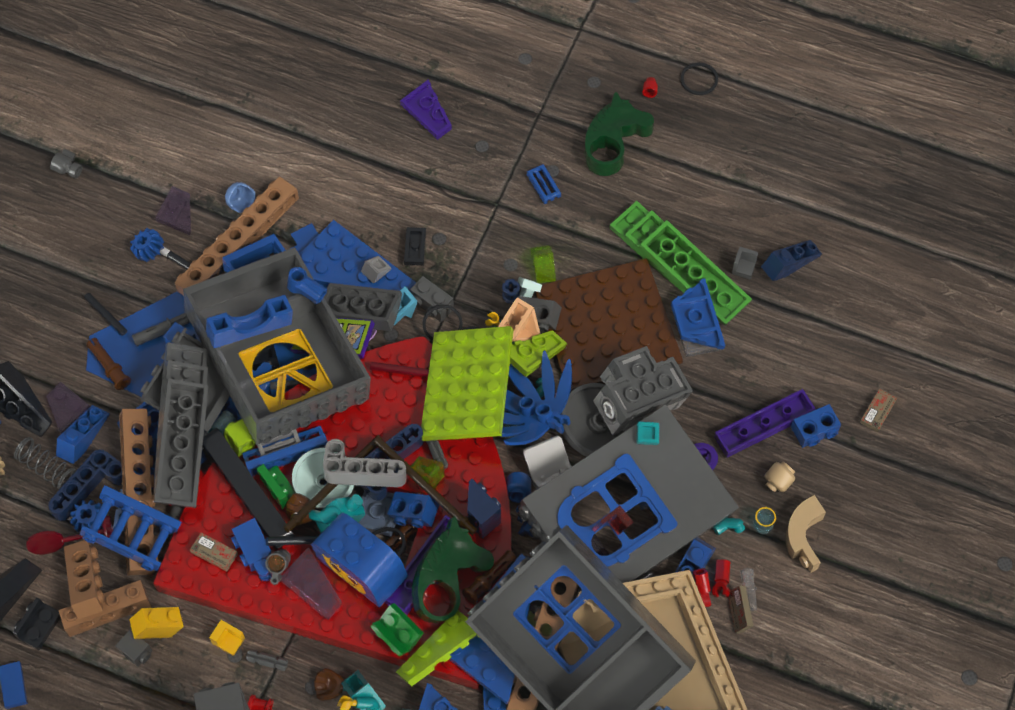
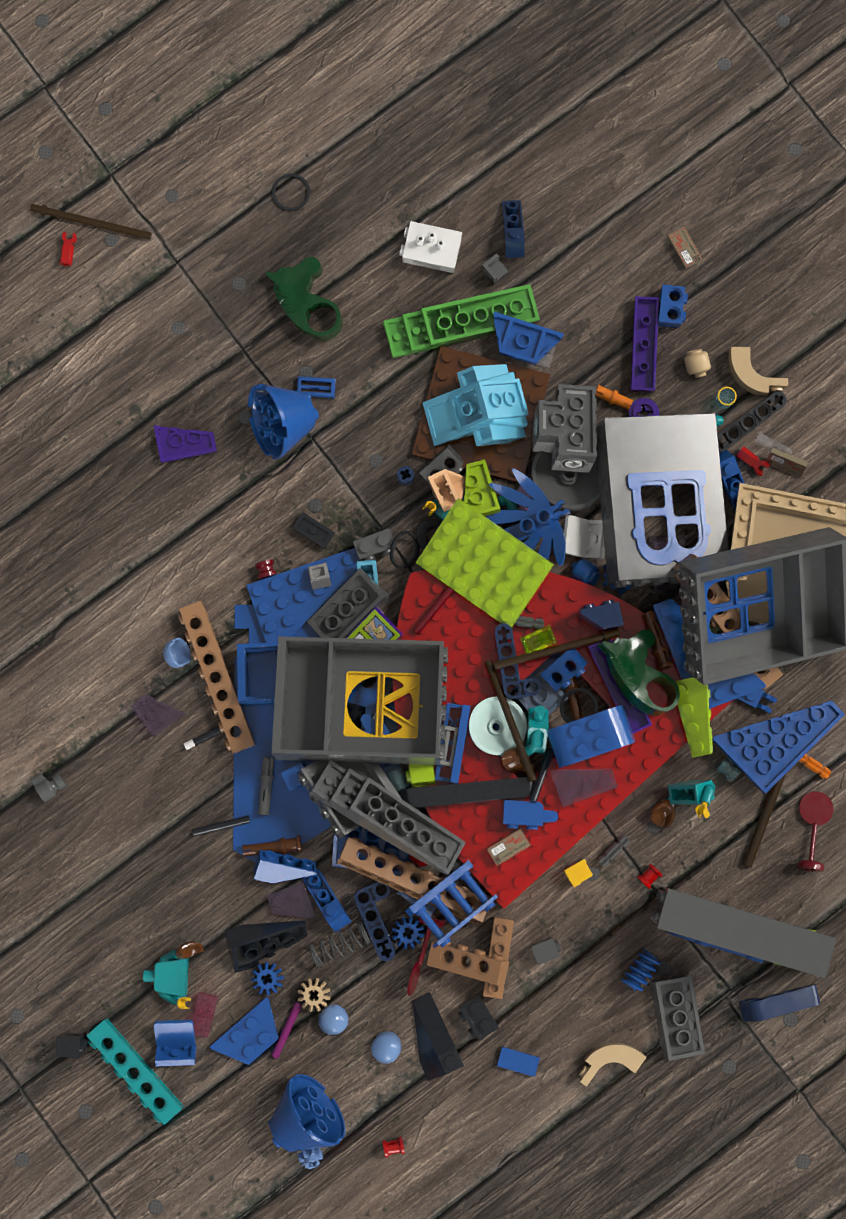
camera: 60 degrees left, 20 degrees up
(90, 375) = (277, 867): none -> slope
(147, 245) = (182, 753): blue gear -> none
(156, 622) = (538, 923): yellow brick -> none
(270, 316) = (342, 714): blue arch -> none
(276, 484) = (482, 765): green bracket -> none
(277, 563) = (554, 801): dark grey piece -> none
(305, 285) = (330, 647): blue piece -> none
(357, 226) = (265, 569): none -> dark red wheel
(390, 472) = (516, 689): light grey beam -> none
(397, 630) = (662, 738): green bracket -> none
(498, 165) = (280, 418): none -> blue cone
(528, 287) = (411, 458): light aqua tile -> none
(543, 264) = (392, 433): clear neon green slope -> none
(611, 312) = (485, 406): none -> medium azure piece
(617, 519) = (679, 521): clear red panel -> none
(648, 433) = (621, 447): teal tile -> none
(650, 87) = (276, 239): red hose -> none
(697, 423) = (613, 397): none -> orange pin
(702, 582) = (751, 478): red bar -> none
(728, 204) = (431, 246): none -> white piece
(763, 560) = (754, 416): none -> black beam

